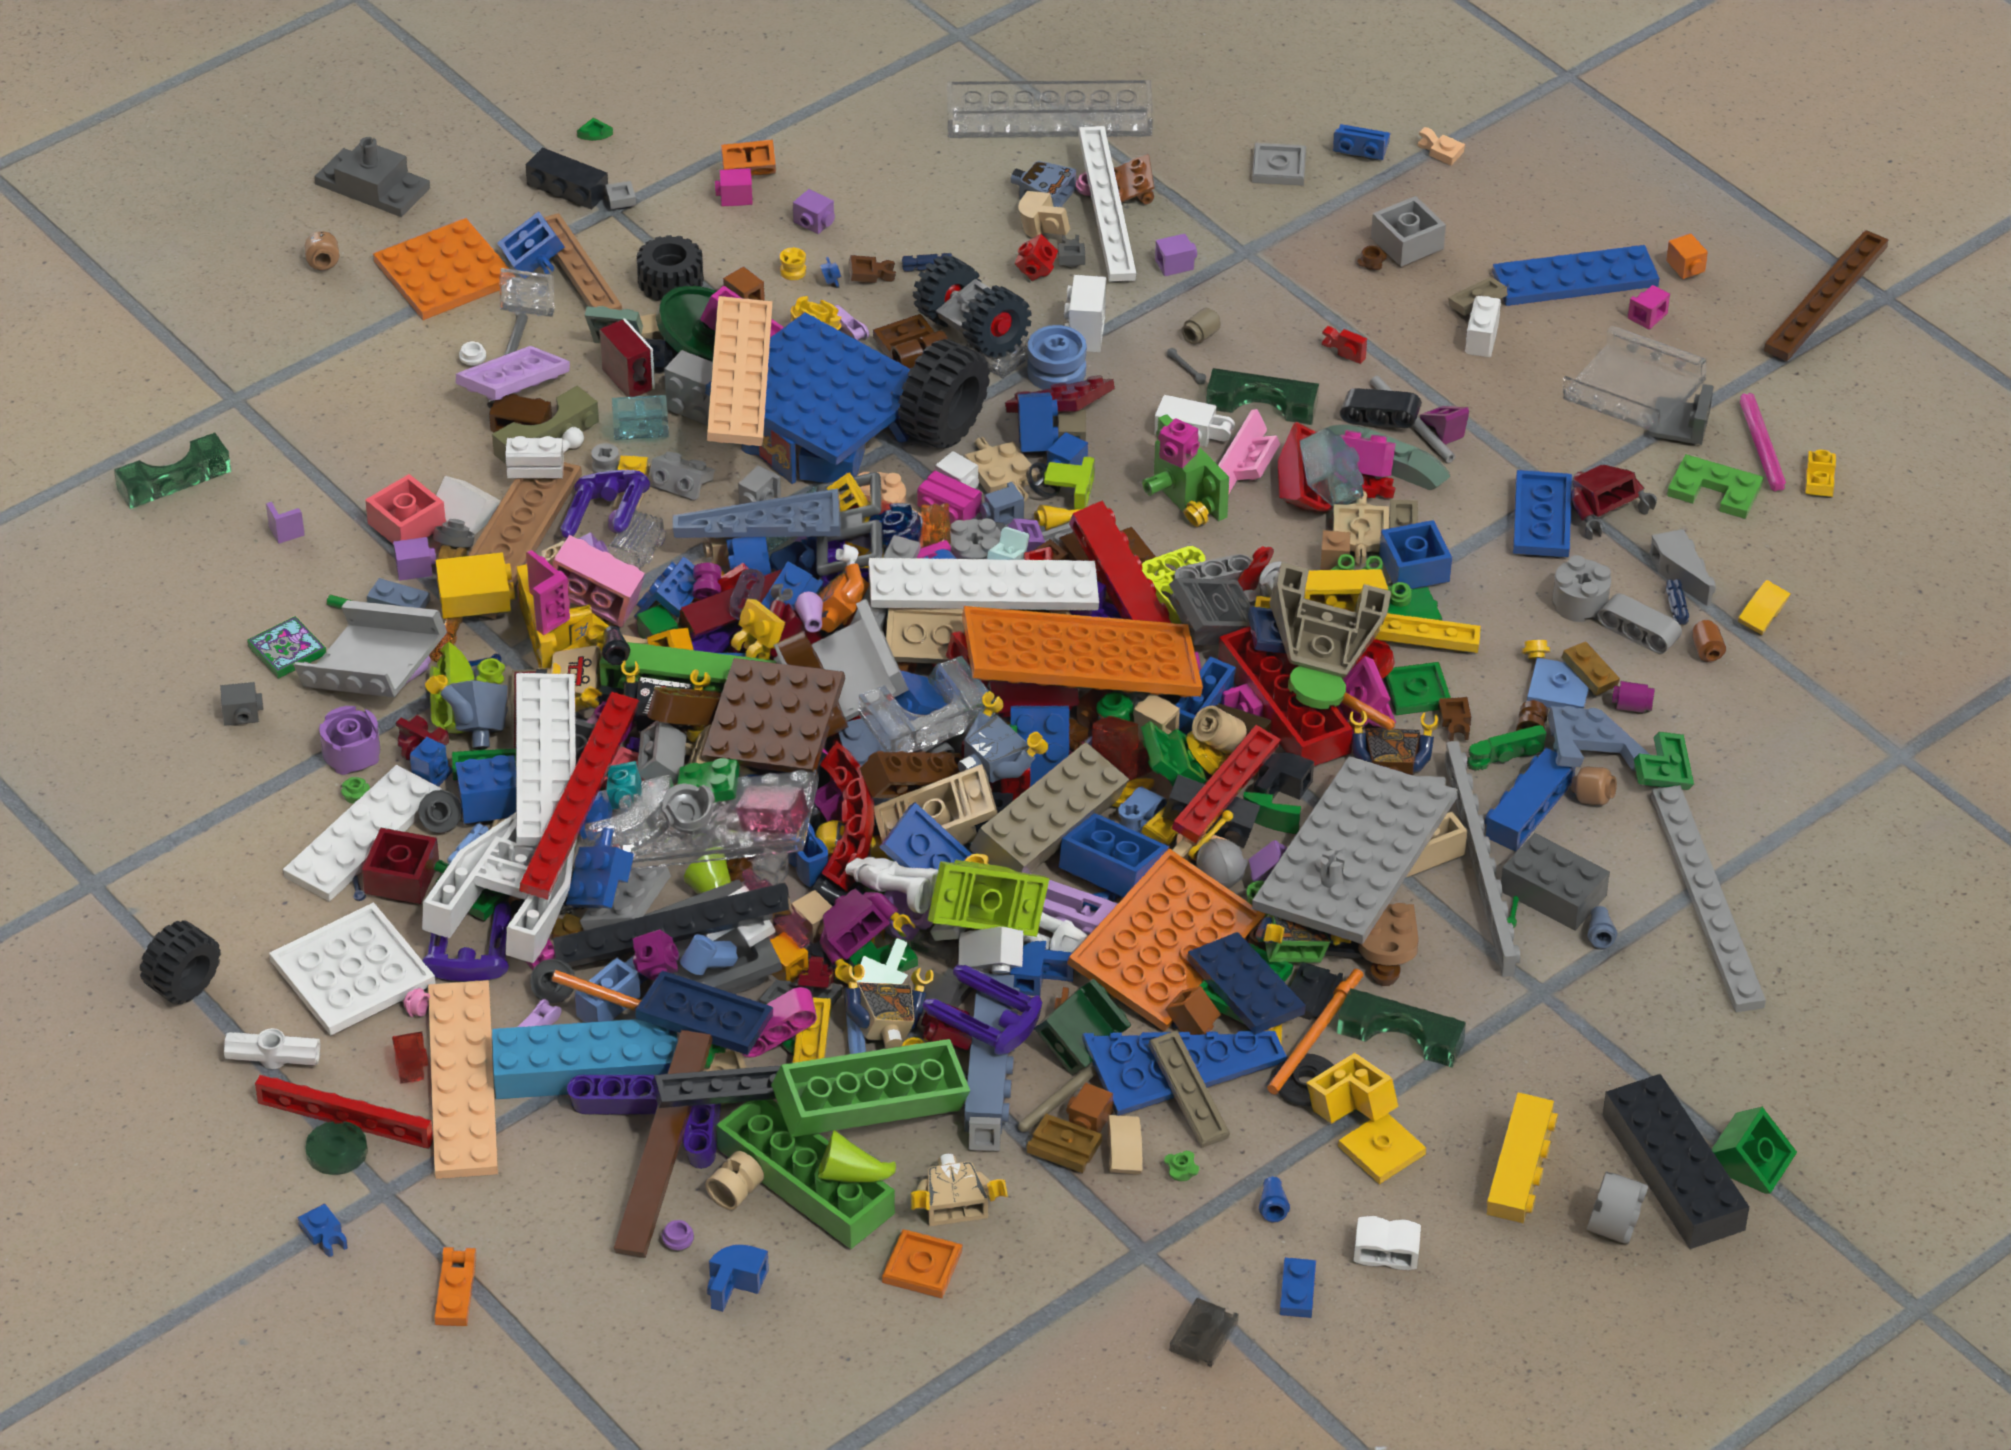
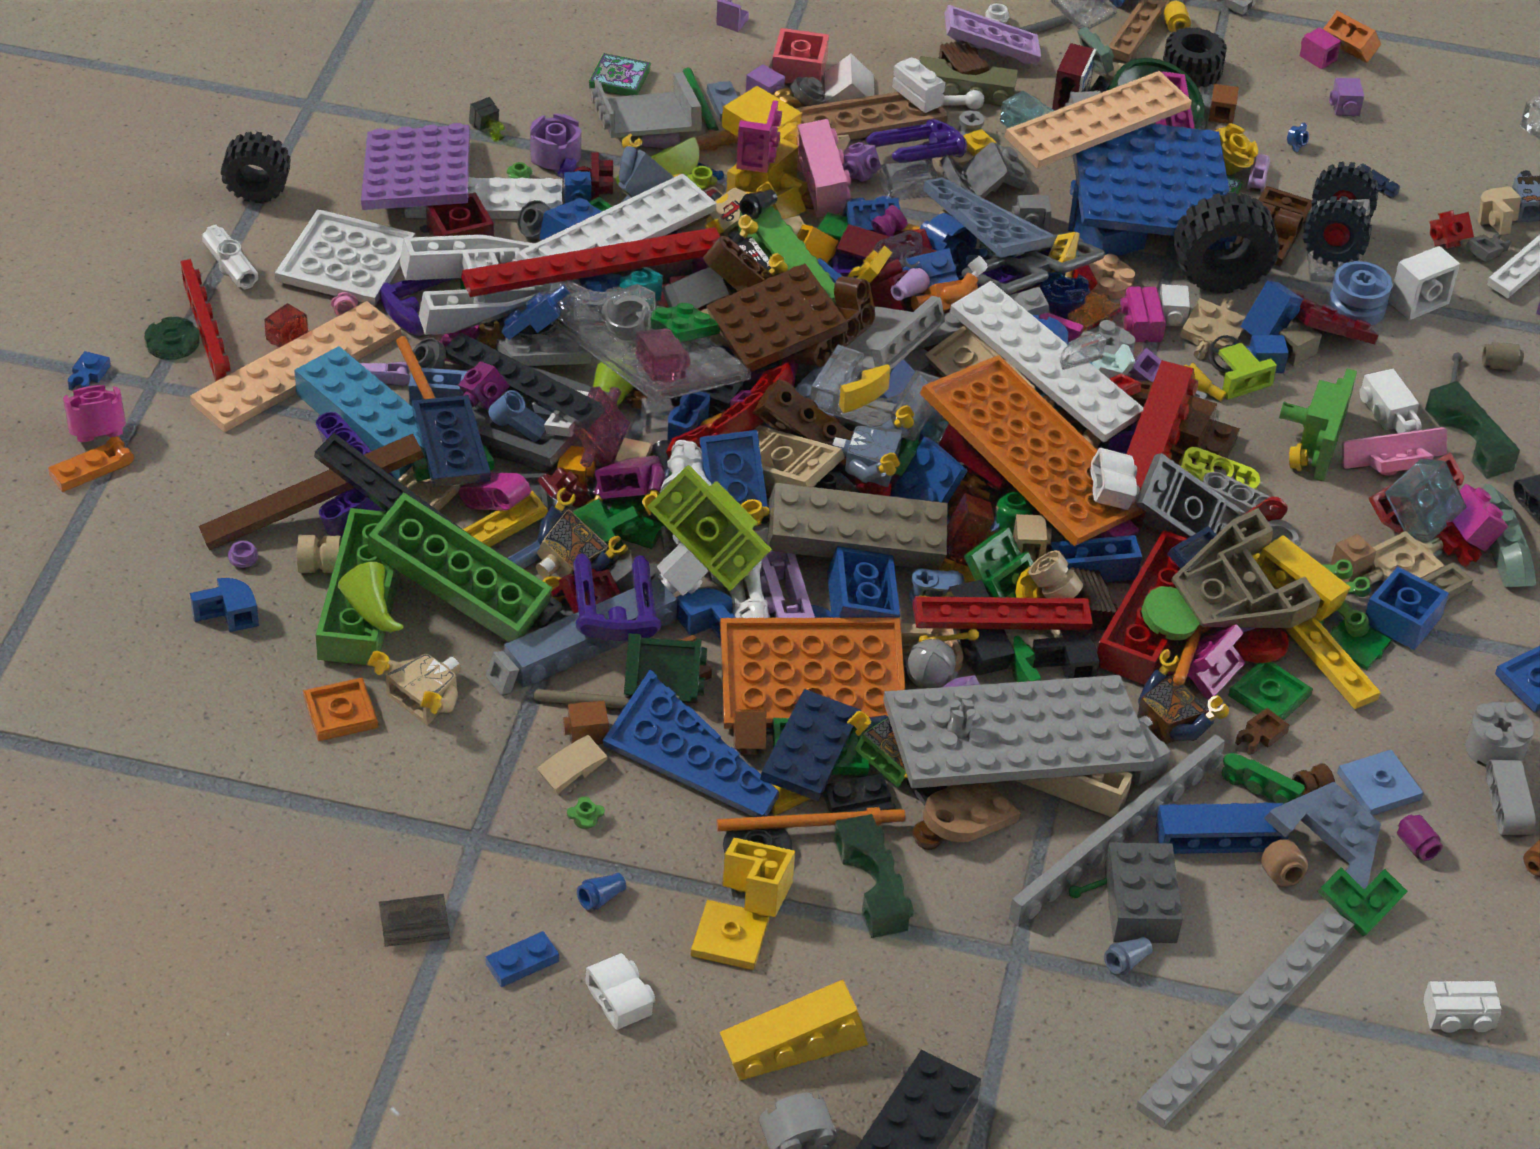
camera: 50 degrees right, 0 degrees up
(240, 703) = (538, 78): dark grey brick -> none
(254, 769) = (485, 115): none -> pearl dark grey piece
(291, 851) = (416, 167): none -> medium lavender plate
(390, 753) = (567, 166): none -> dark purple plate
(408, 1244) = (94, 412): none -> dark pink brick
(601, 246) = (1176, 16): none -> yellow brick
(680, 488) = (980, 174): none -> flat silver bracket
(792, 263) = (1282, 114): yellow wheel -> none
(869, 270) = (1326, 152): reddish brown plate -> none
(937, 706) = (862, 392): none -> yellow slope
(1003, 505) = (1172, 345): sand blue brick -> none
(1008, 552) = (1083, 350): none -> clear brick
(1064, 1143) = (540, 726): pearl gold plate -> none
(1159, 626) = (1114, 478): none -> white brick
(1178, 443) = (1323, 387): dark pink brick -> none
(1189, 1089) = (664, 770): dark tan tile -> none
(1243, 699) = (1119, 584): dark pink bracket -> none
(1535, 649) = (1398, 743): yellow plate -> none
(1590, 668) = (1416, 788): pearl gold plate -> none
(1801, 775) = (1462, 1005): none -> white brick

